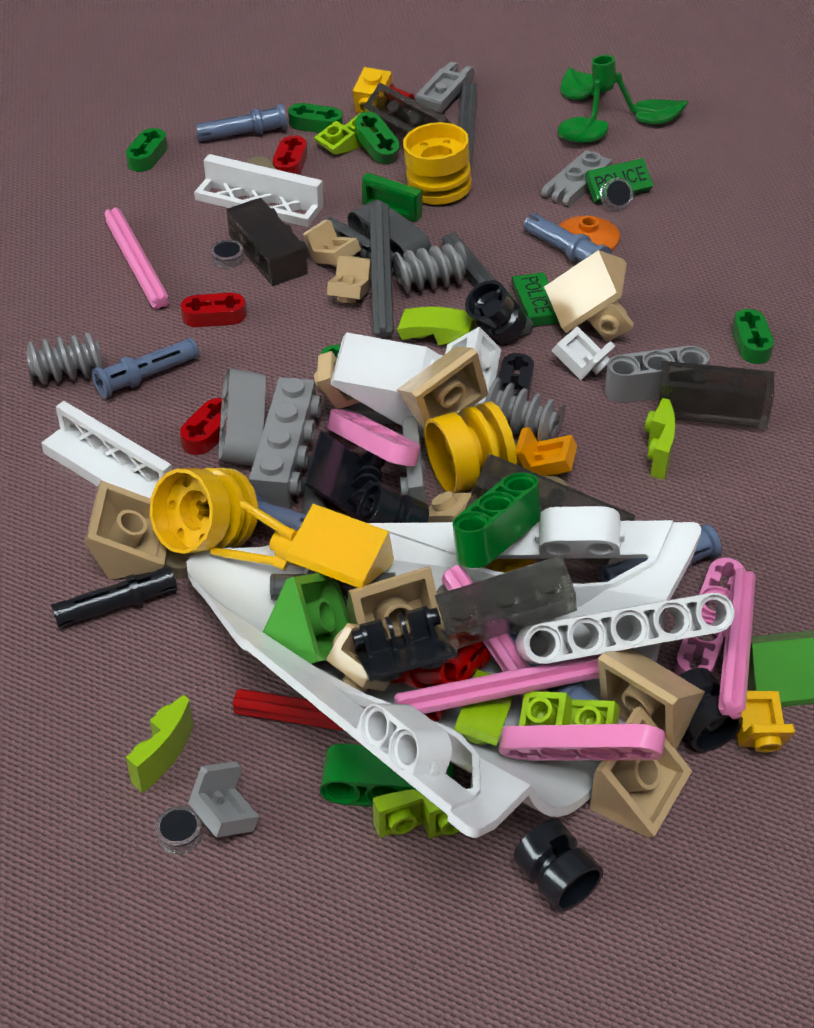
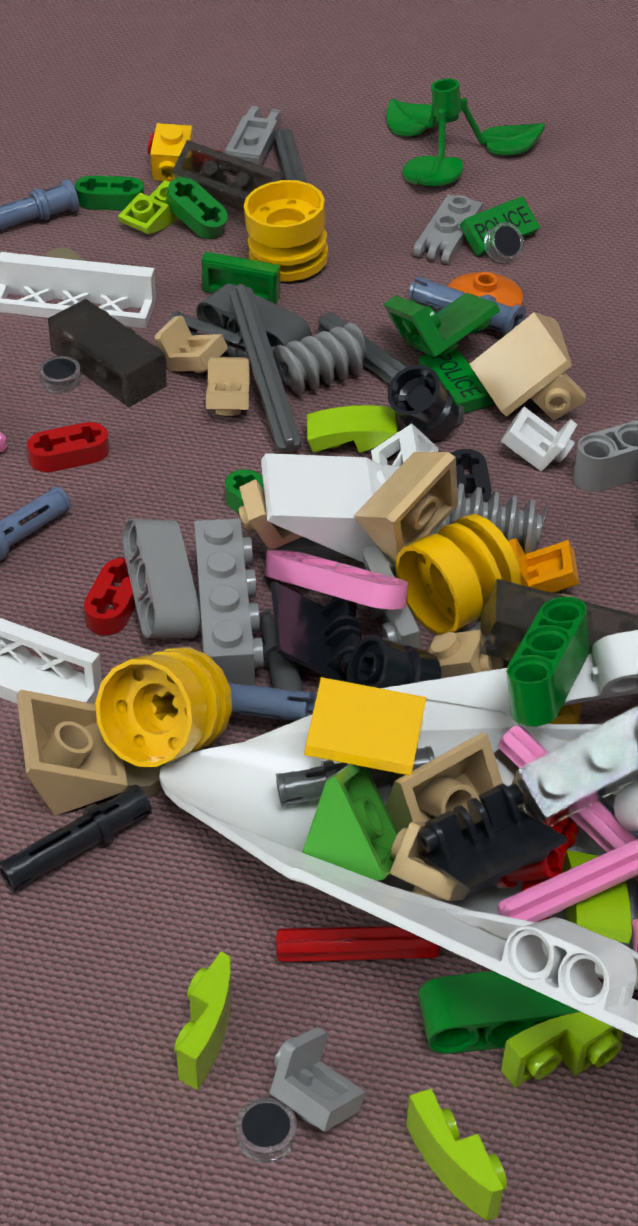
camera: 15 degrees left, 0 degrees up
(279, 542) = (285, 732): yellow plant -> none
(291, 154) = (95, 240): red beam -> none
(309, 875) = (457, 1162): none -> lime slope
(531, 260) = (440, 331): none -> green bracket

